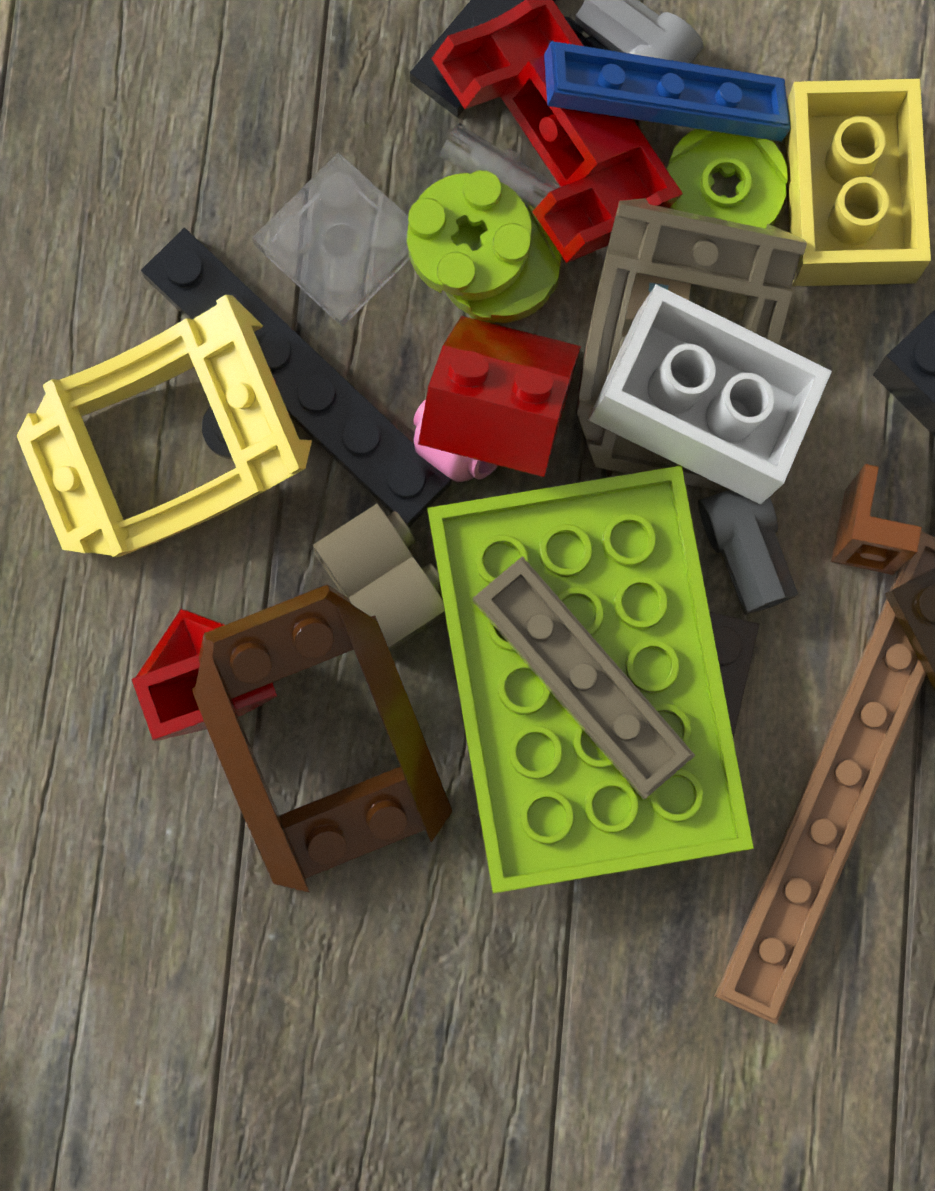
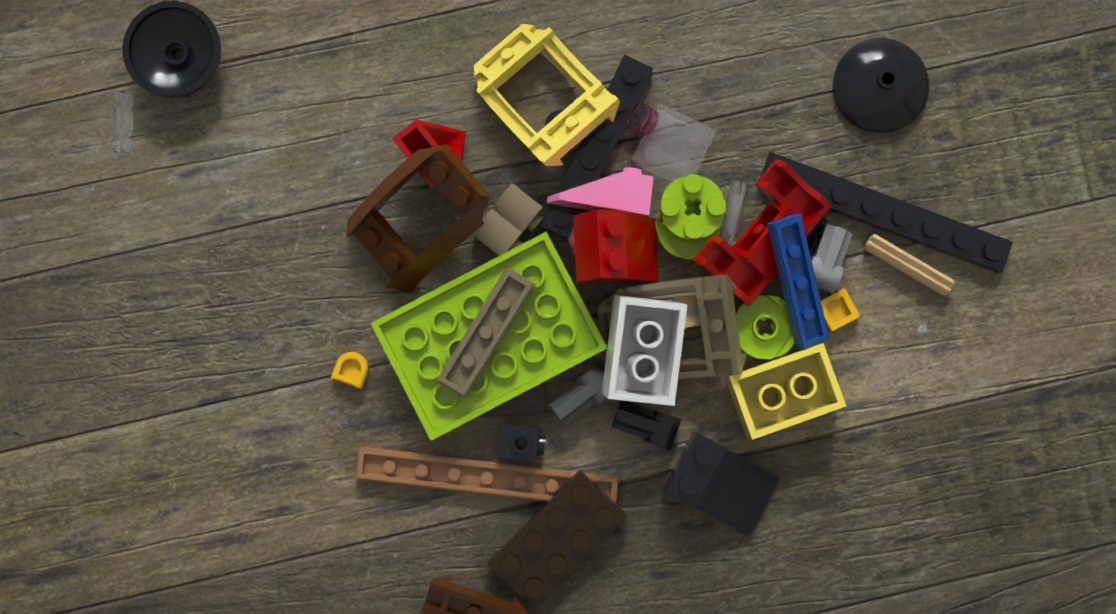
camera: 70 degrees right, 5 degrees up
(275, 275) = (642, 120): none -> clear pink tile
(394, 371) = (619, 192): none -> bright pink slope
(564, 966) = (351, 369): none -> yellow tile
(734, 45) = (838, 310): none -> yellow tile
(802, 688) = (520, 442): none -> black brick
(845, 438) = (653, 426): none -> black piece
(870, 540) = (600, 451): dark orange panel -> none

